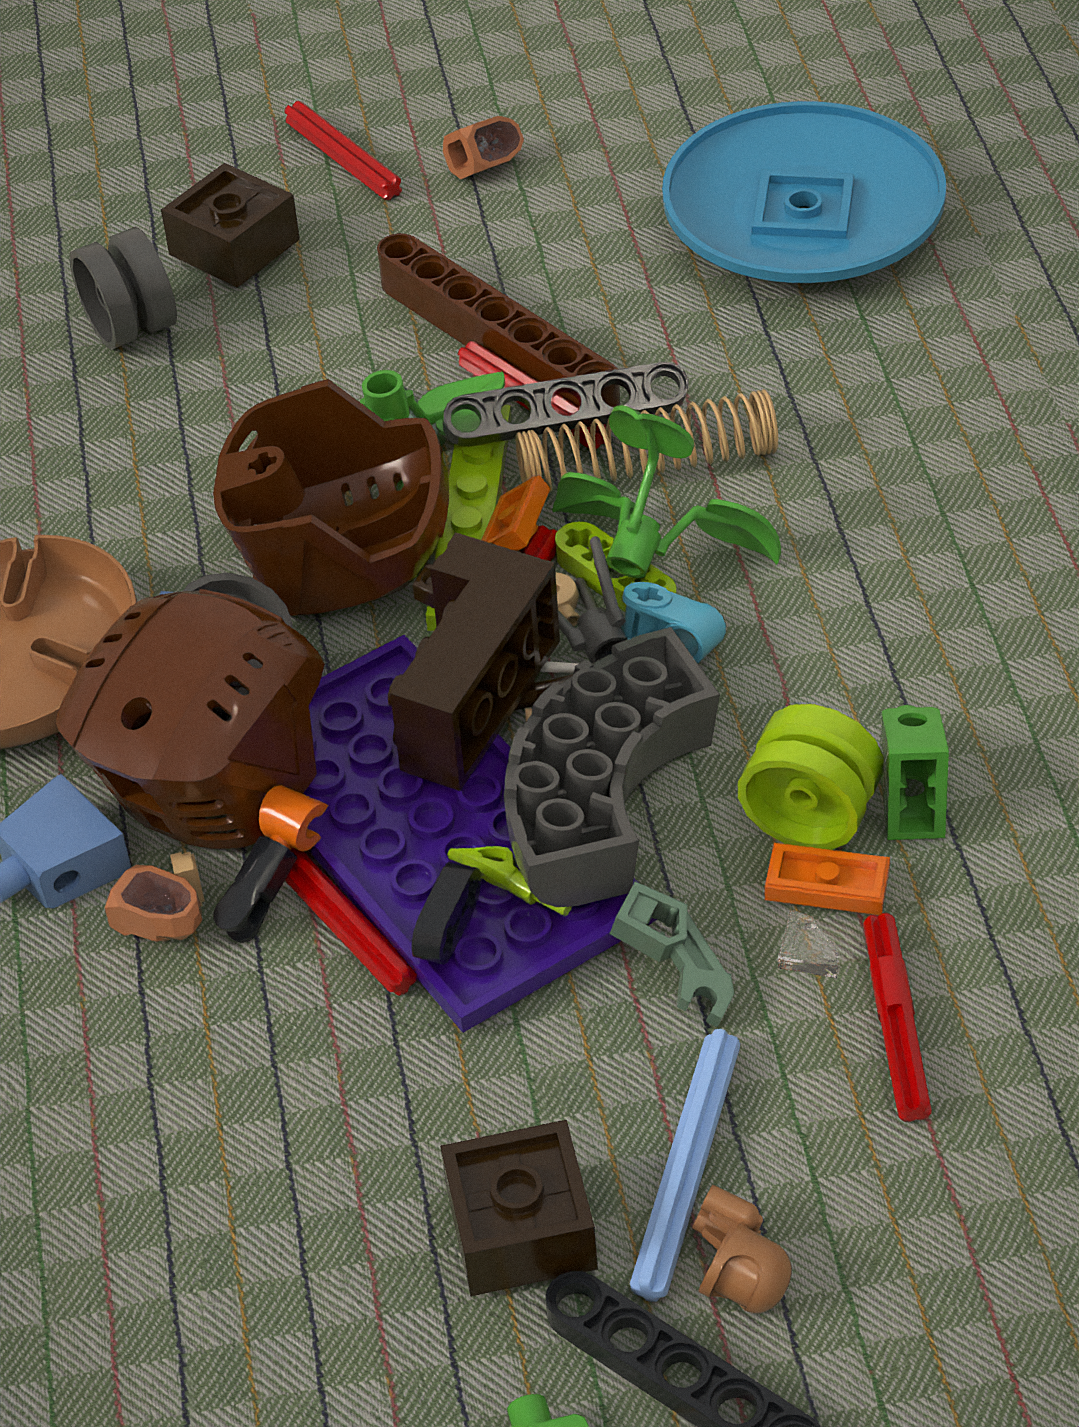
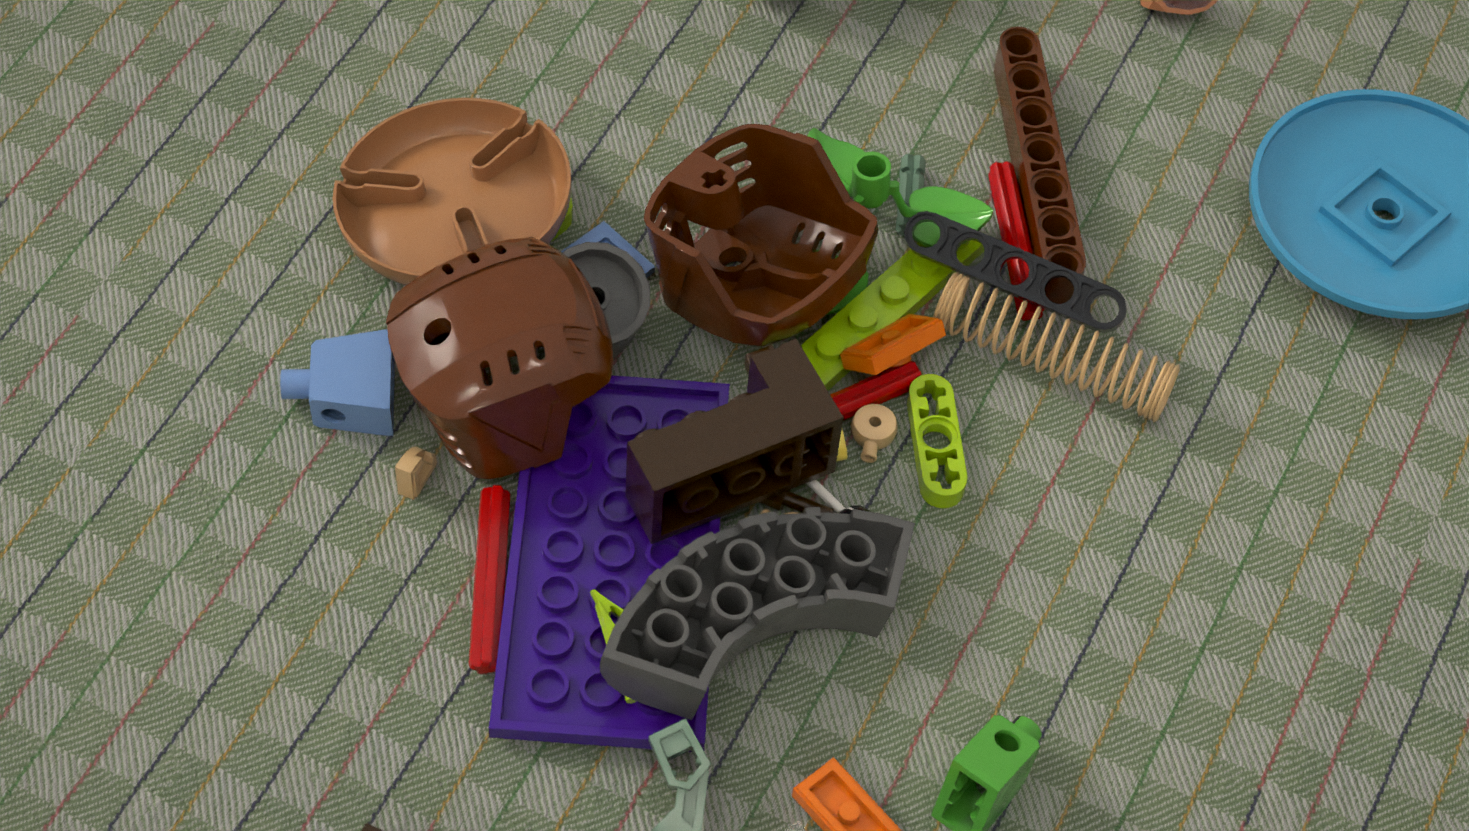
camera: 30 degrees right, 10 degrees up
(153, 905) = (368, 479): nougat rock -> none
(285, 821) = (503, 480): black piece -> none
(446, 913) = (542, 639): black beam -> none
(598, 626) = (871, 482): dark grey plant -> none
(637, 533) = (960, 426): bright green plant -> none
(656, 608) = (938, 527): medium azure piece -> none
(811, 776) = (897, 727): lime wheel -> none

